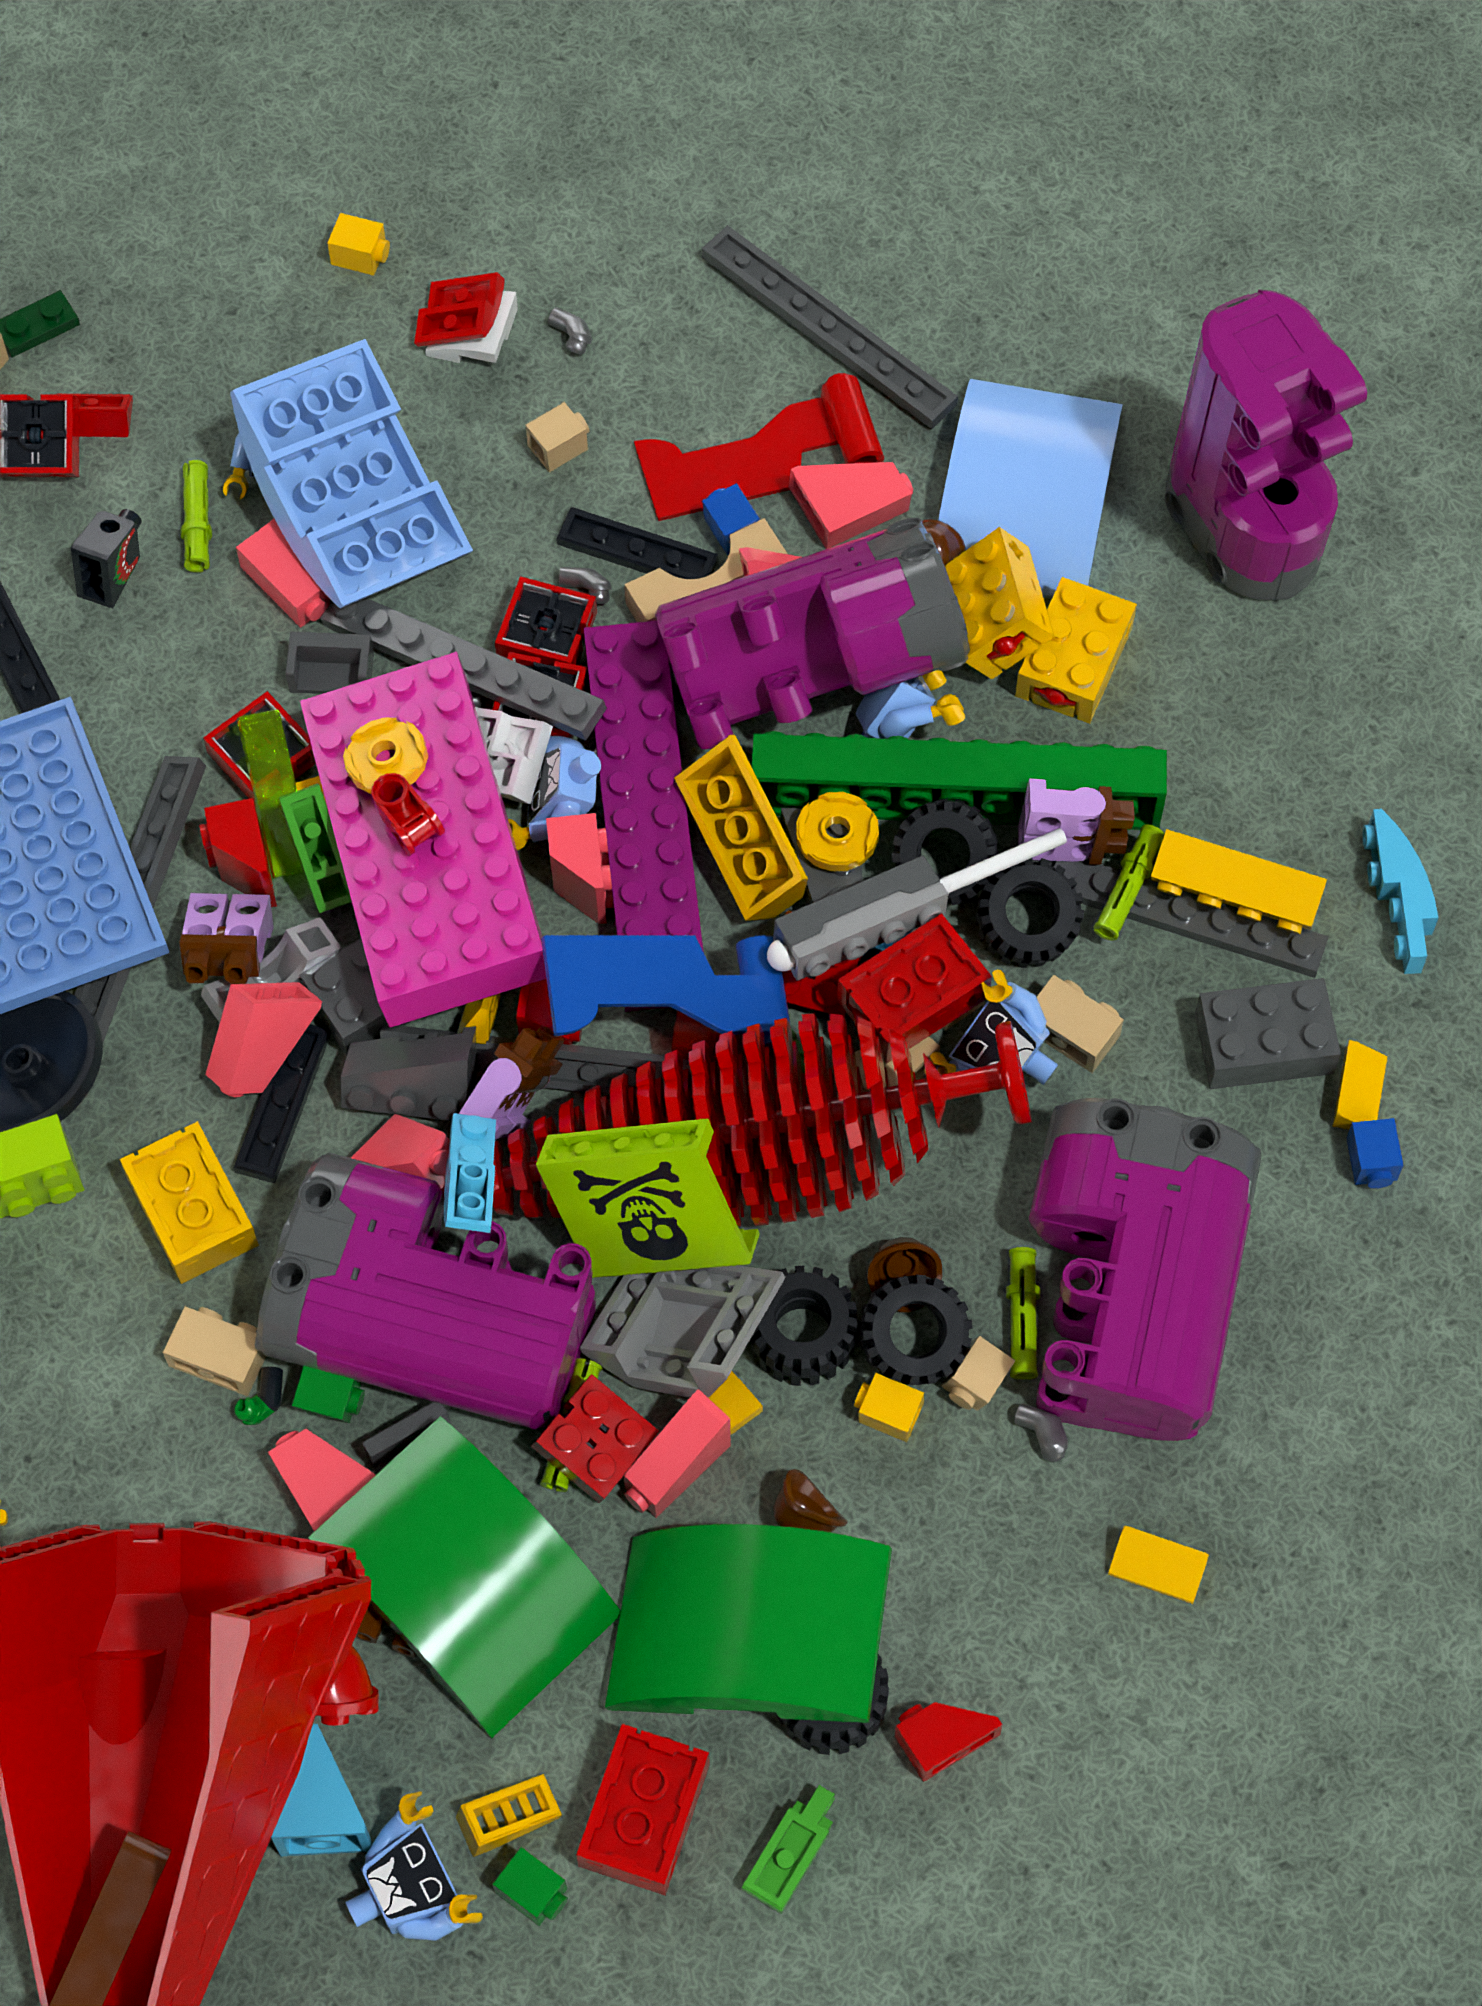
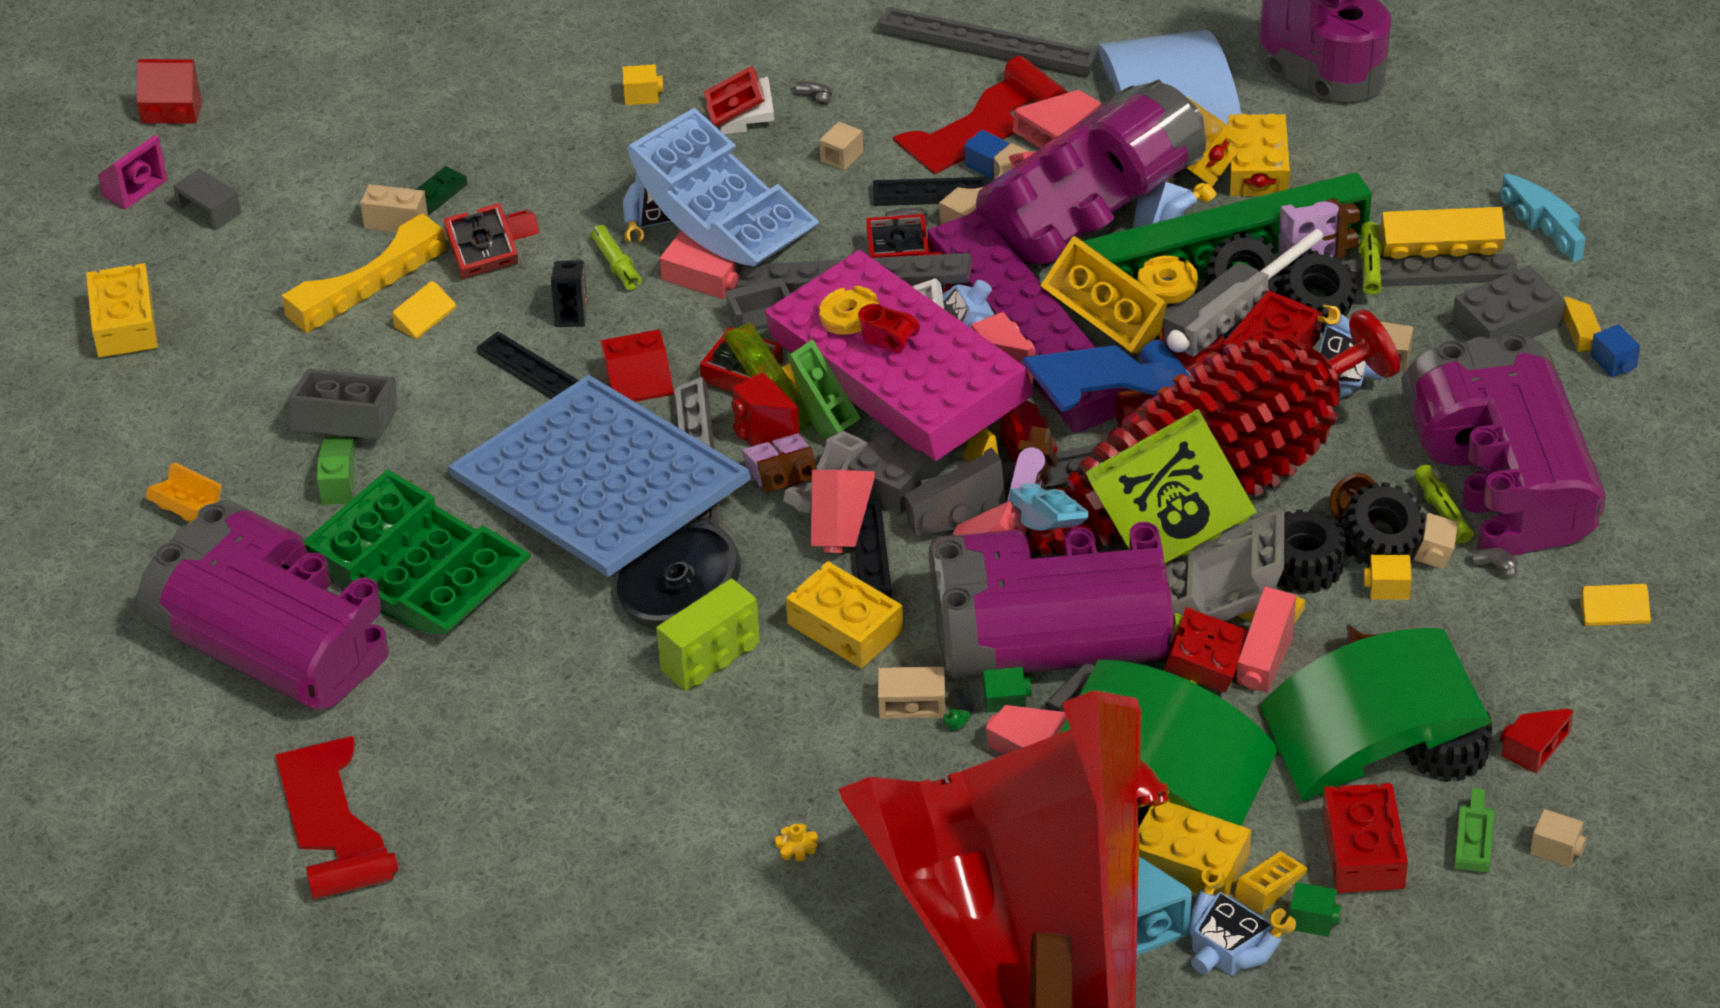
camera: 20 degrees left, 20 degrees down
(134, 707) = (637, 365): none -> red slope
(428, 1736) = (1188, 841): none -> yellow piece
(888, 1905) = (1558, 838): none -> tan brick

